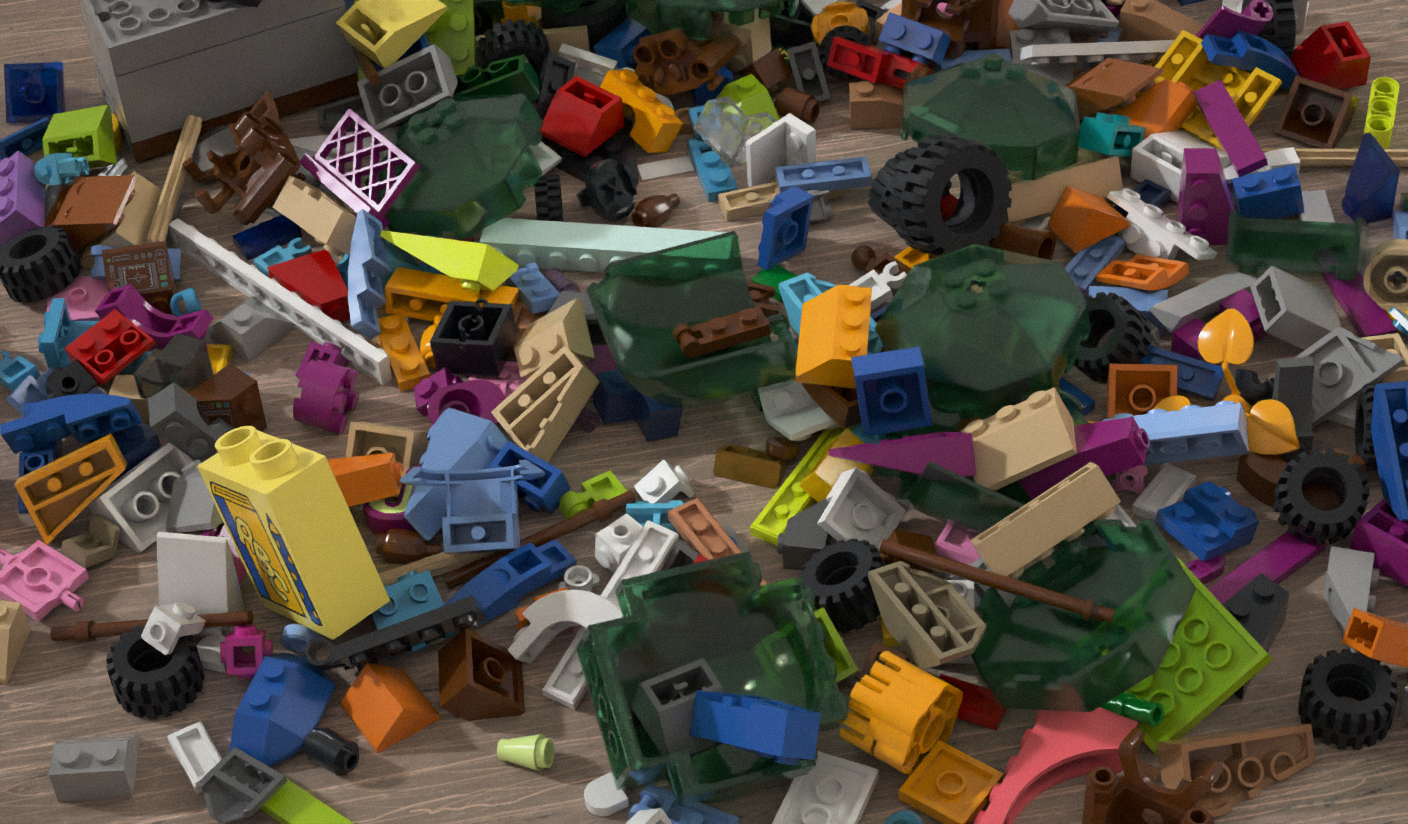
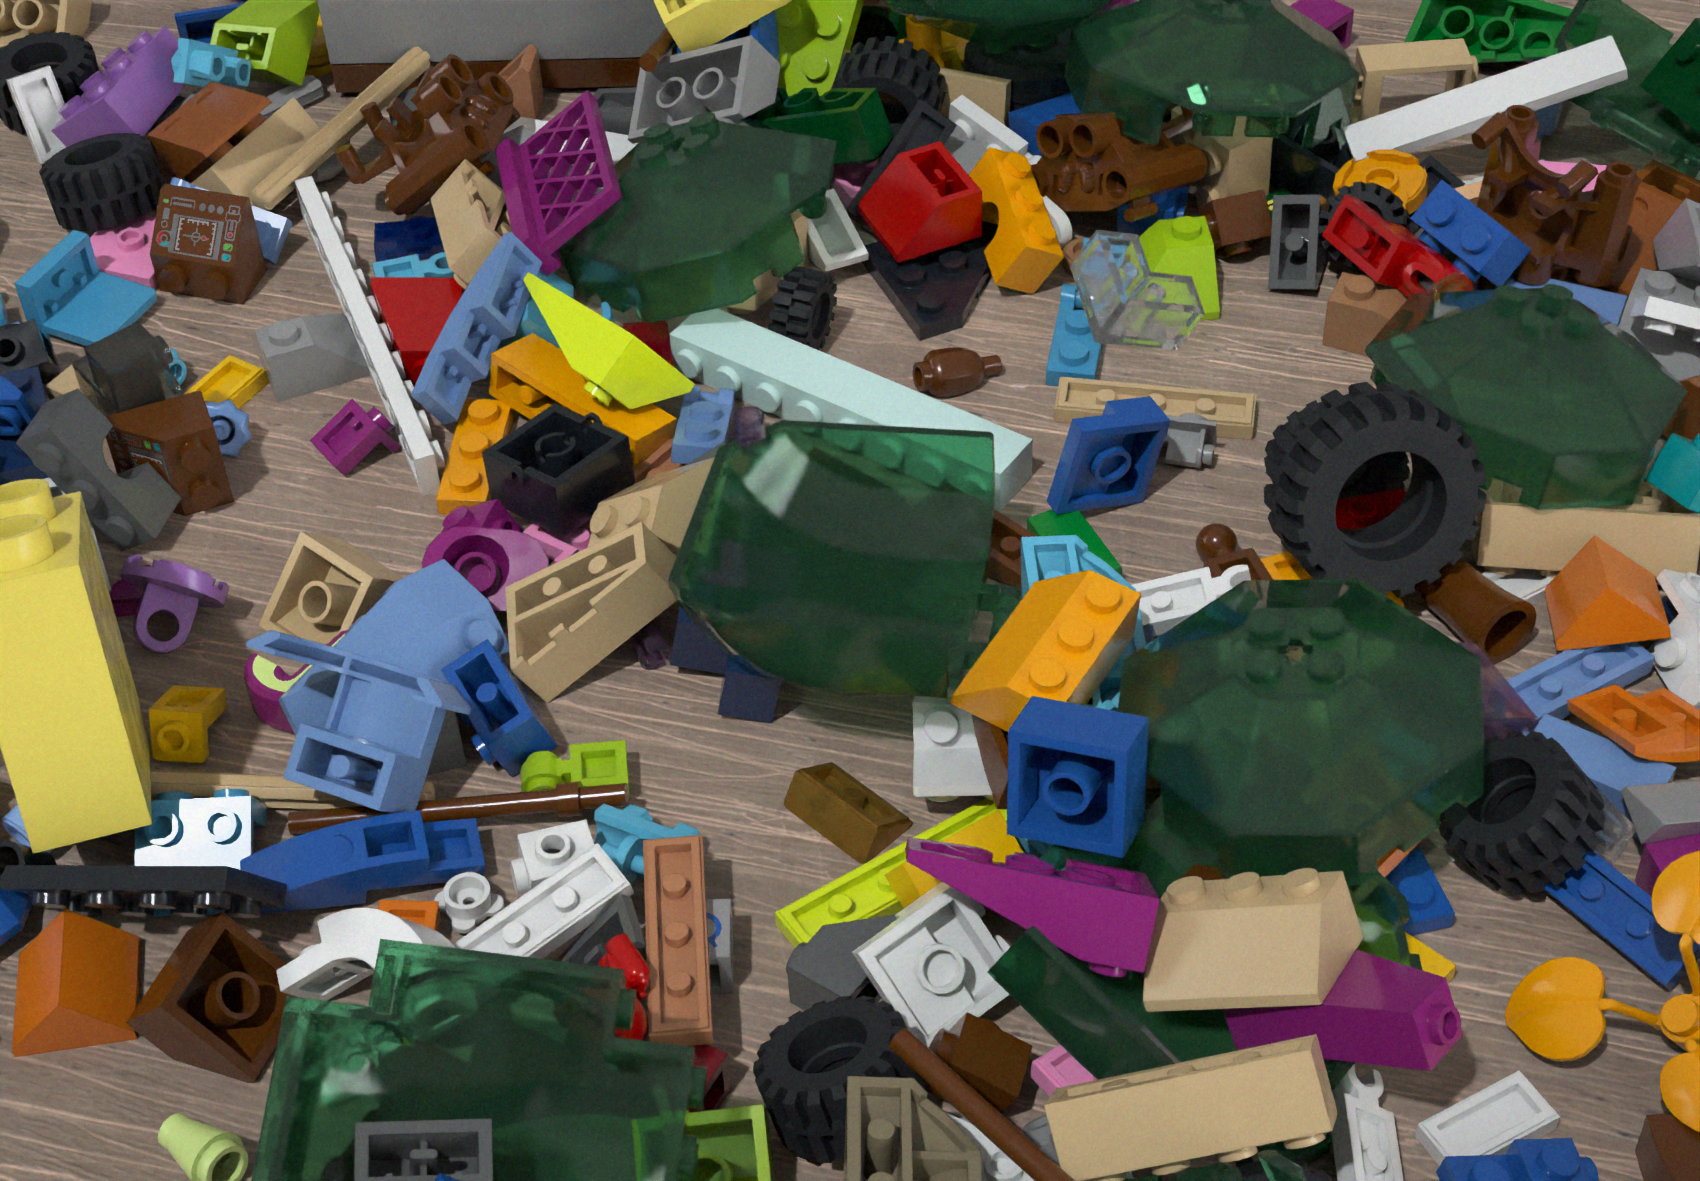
camera: 25 degrees right, 0 degrees up
(109, 346) = (85, 314): red slope -> none
(153, 322) = (176, 306): magenta arch -> none
(191, 302) = (255, 297): dark azure tile -> none
(326, 396) = (314, 481): magenta brick -> none
(367, 477) = (241, 608): orange slope -> none
(404, 546) = (261, 741): reddish brown plant -> none
(609, 190) = (900, 318): black tile -> none
(664, 483) = (692, 791): white bracket -> none
(665, 167) = (1015, 315): white sticker -> none
(721, 332) = (902, 584): reddish brown plate -> none
(781, 144) = (1177, 337): white bracket -> none
(782, 448) = (899, 804): reddish brown tile -> none
(798, 104) = (1255, 284): reddish brown brick -> none
(825, 175) = (1223, 397): medium blue plate -> none
(1136, 484) = (1444, 1079): bright pink plate -> none
(1138, 387) = (1527, 923): orange slope -> none
(1193, 432) = (1565, 1035): light blue slope -> none

